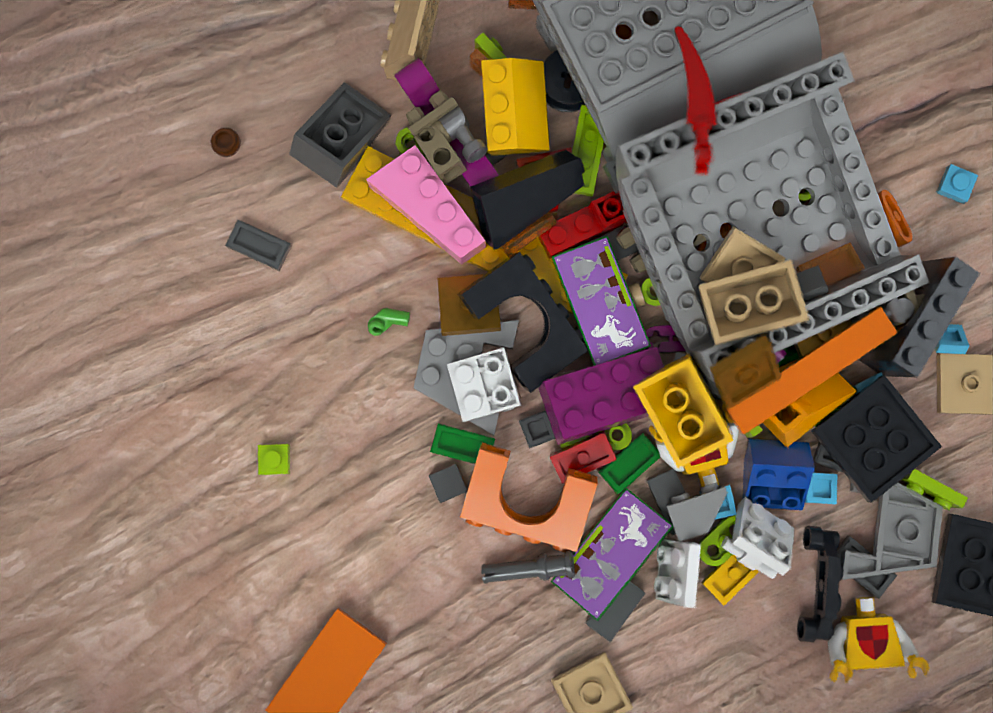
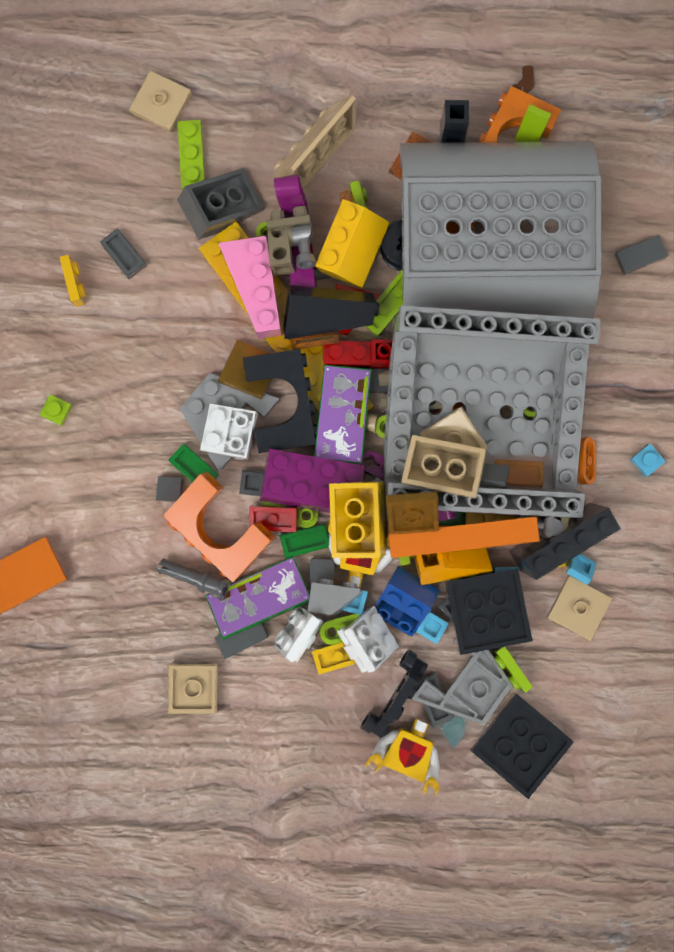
camera: 25 degrees right, 0 degrees up
(211, 295) = (75, 289): none -> yellow plate
(212, 54) = (160, 101): none -> tan plate
(225, 142) = (137, 169): reddish brown plate -> none
(276, 95) = (191, 152): none -> lime plate
(385, 318) = (186, 350): bright green arm -> none
(701, 103) = (476, 303): red sword -> none
(903, 590) = (454, 730): none -> clear light blue tile

